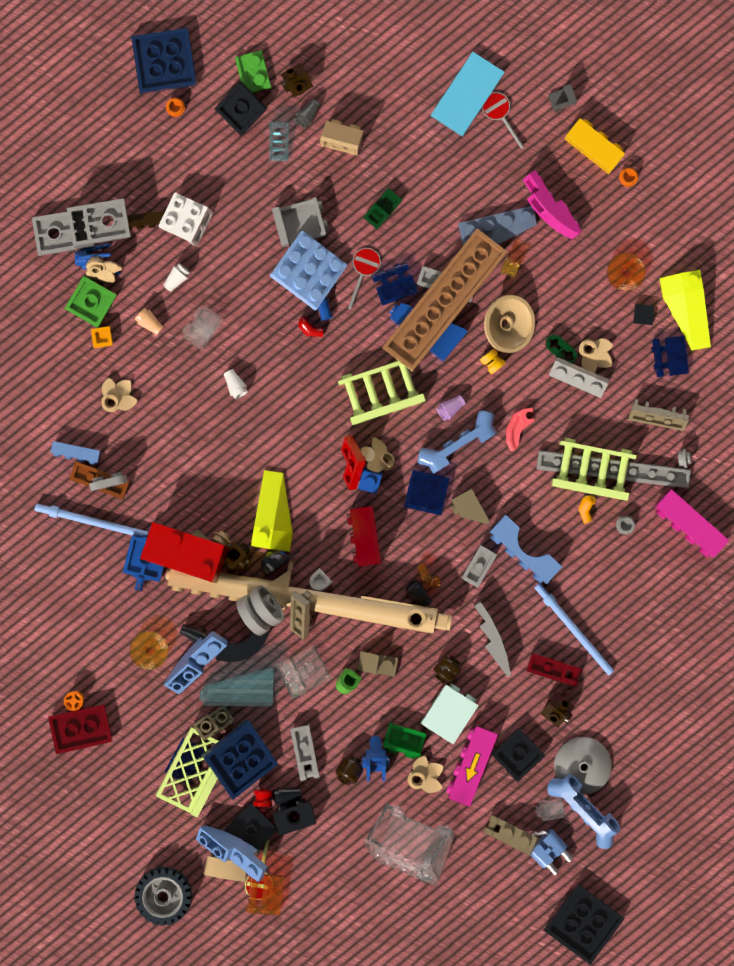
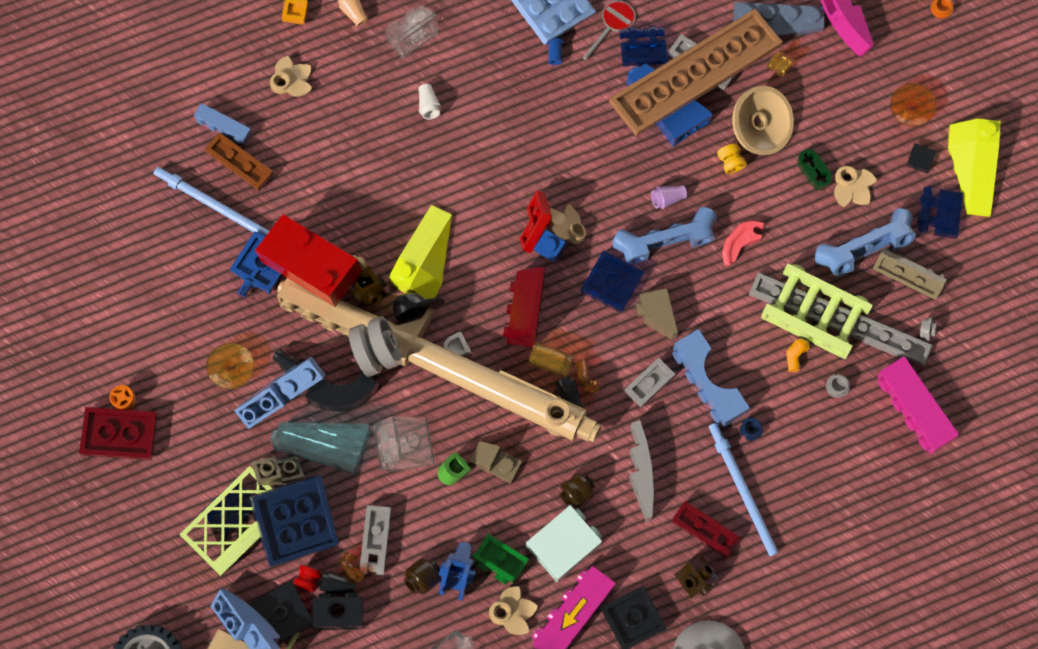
camera: 20 degrees right, 15 degrees down
(100, 483) = (247, 162): light grey plate -> none
(293, 780) = (352, 571): none -> clear orange arm
(300, 614) = (421, 370): dark tan plate -> none
(306, 327) = (530, 68): red arm -> none
(377, 408) = (584, 175): yellowish green fence -> none
(397, 570) = (551, 359): none -> clear yellow piece
(572, 579) = (755, 424): none -> dark blue plate
(579, 377) = (827, 204): plate -> none
(640, 387) = (842, 258): none -> medium blue plate

